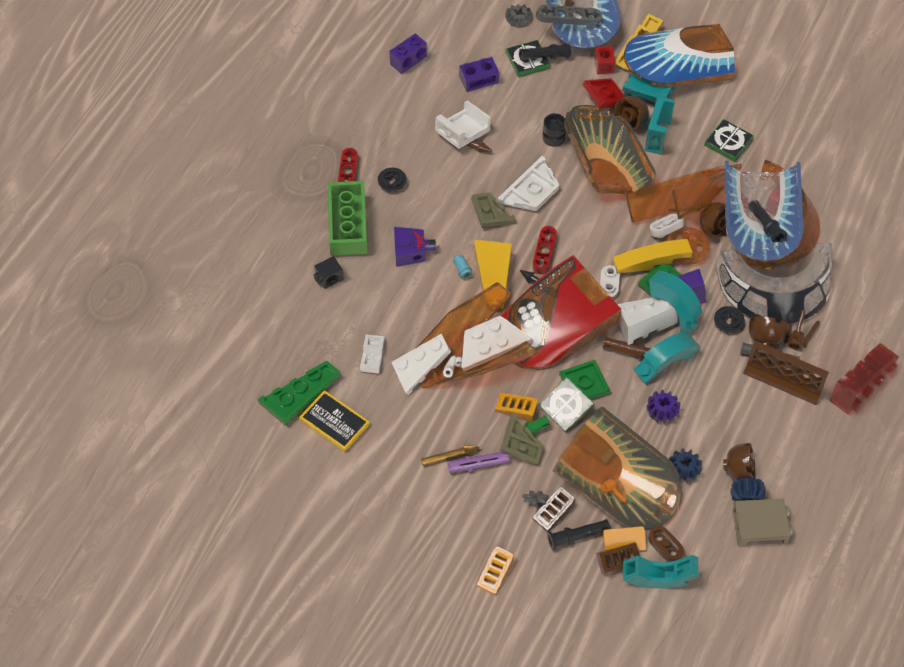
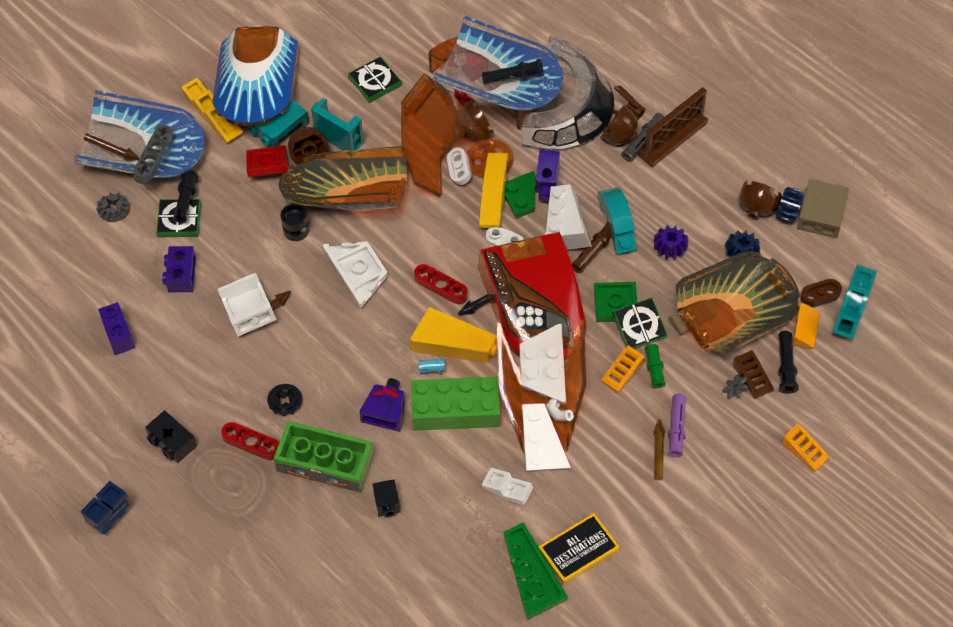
camera: 70 degrees left, 0 degrees up
(251, 98) = (106, 509): none -> dark blue hips
(329, 119) = (170, 437): none -> black brick
(429, 288) = (455, 403): none -> bright green brick
(490, 212) = (370, 317): olive wing -> none
(520, 442) = (671, 376): olive wing -> none
(601, 556) = (828, 346): reddish brown slope -> none
(604, 60) = (220, 147): red brick -> none
(610, 485) = (747, 317): orange hand -> none
(680, 296) = (561, 178): teal arch -> none
(736, 316) = (586, 149): black gear -> none
(864, 377) = (700, 71): clear red wedge -> none

